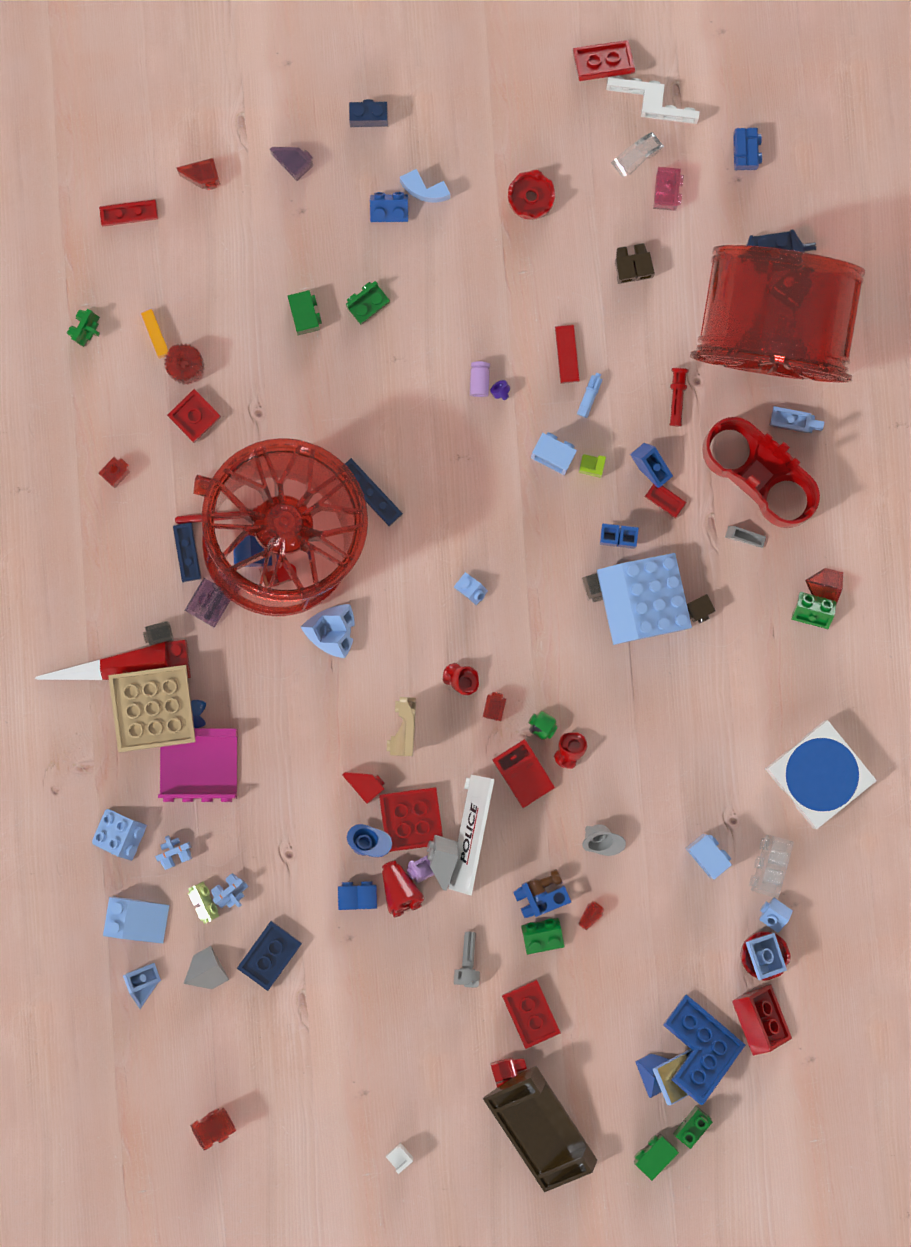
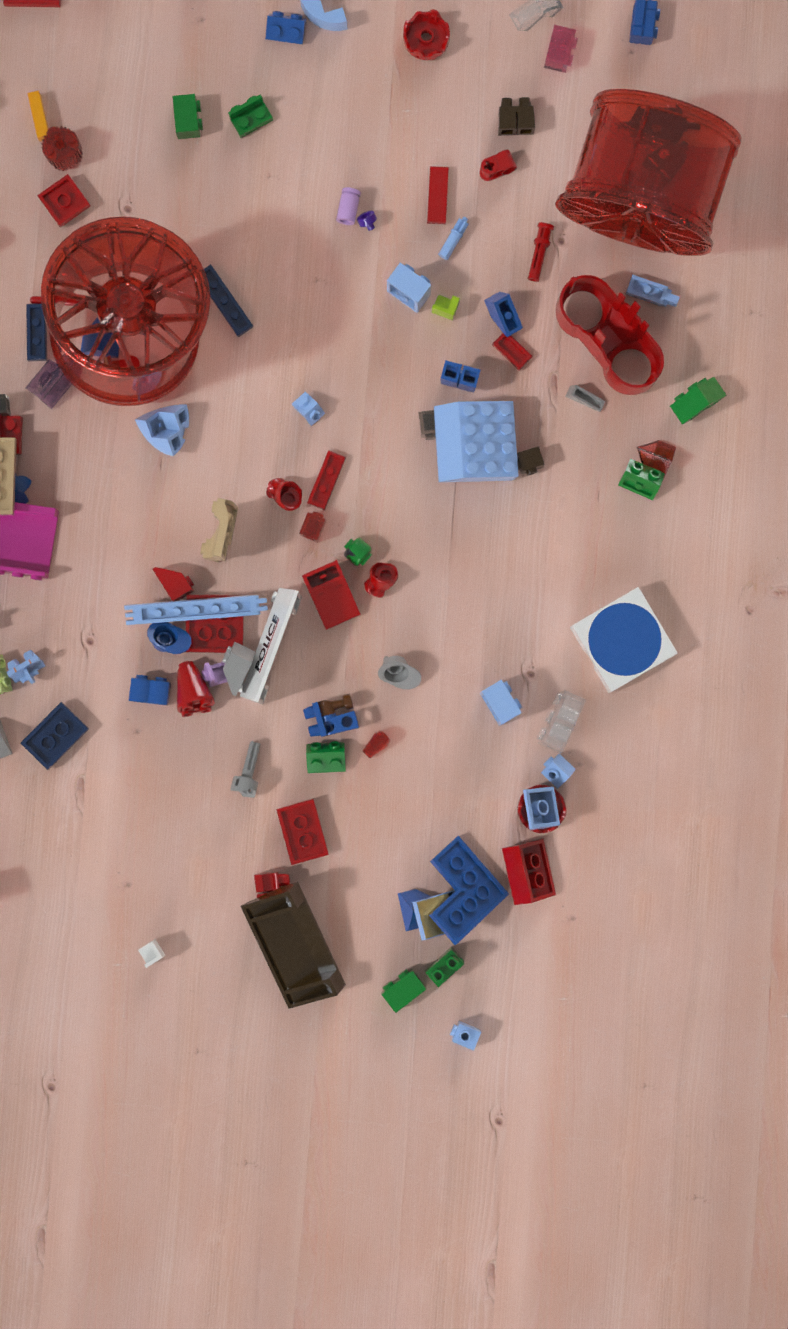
camera: 10 degrees right, 0 degrees up
(391, 809) = (195, 609): none -> light blue hinge
(500, 657) = (326, 480): none -> red tile
(625, 314) = (500, 164): none -> red piece
(724, 1192) = (465, 1035): none -> light blue brick
(859, 522) = (697, 399): none -> green brick

